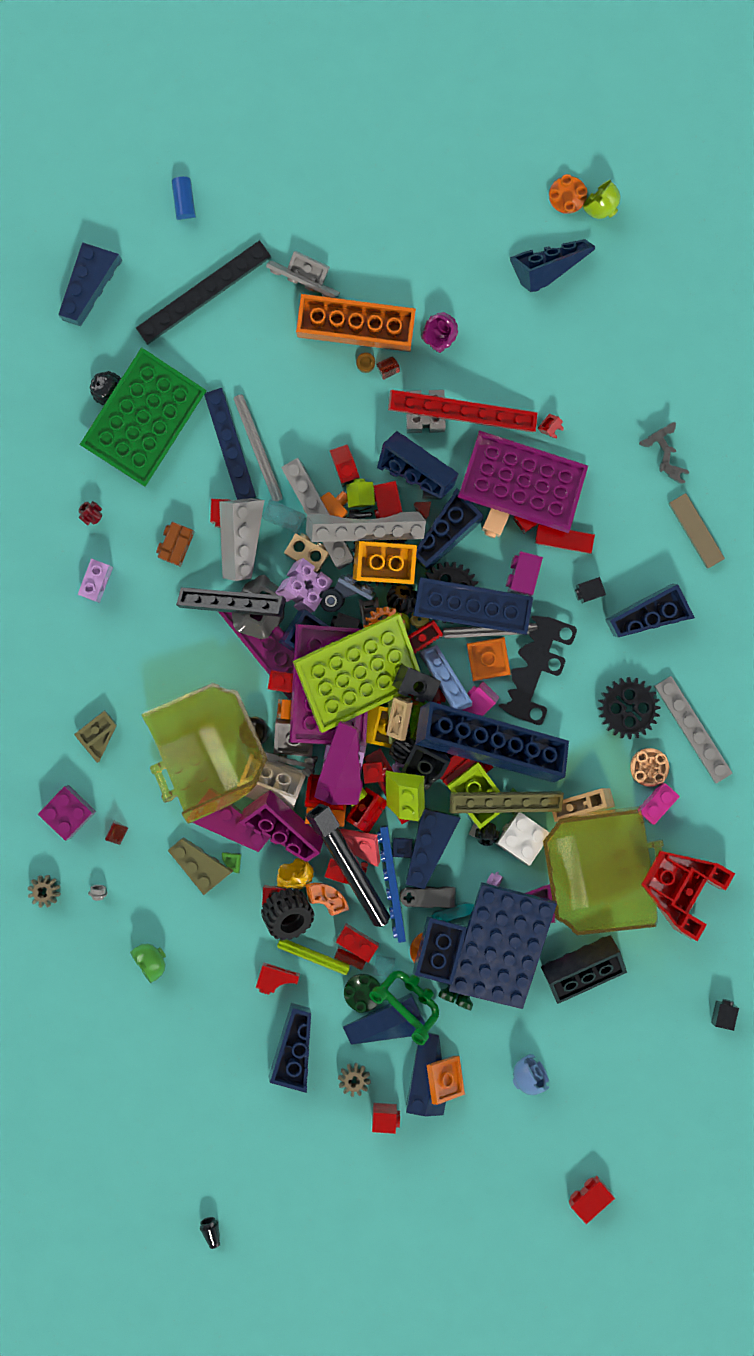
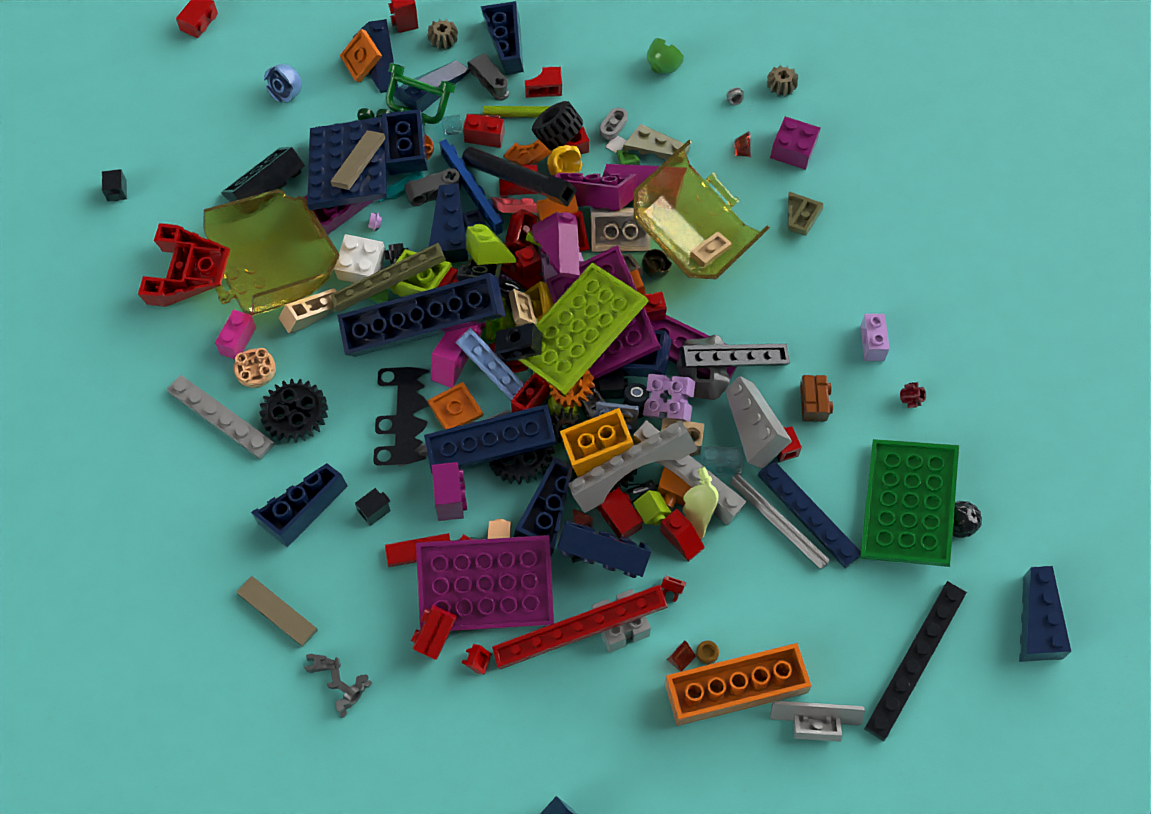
camera: 155 degrees right, 25 degrees down
(183, 198) = (991, 753): blue brick -> none
(201, 723) = (710, 249): none -> tan plate
(230, 905) = (611, 126): none -> light grey plate
(235, 884) = (616, 144): none -> white sticker
(308, 763) = (632, 247): dark grey piece -> none
(320, 480) = (701, 503): none -> yellowish green animal
(327, 1009) = (489, 76): none -> dark grey piece
(358, 990) = (464, 98): dark green dish -> none
(370, 425) = (673, 585): none -> red tile
(440, 331) = (641, 713): magenta hair -> none
(493, 935) = (358, 160): none -> dark tan tile
(578, 457) = (433, 632): none -> red brick

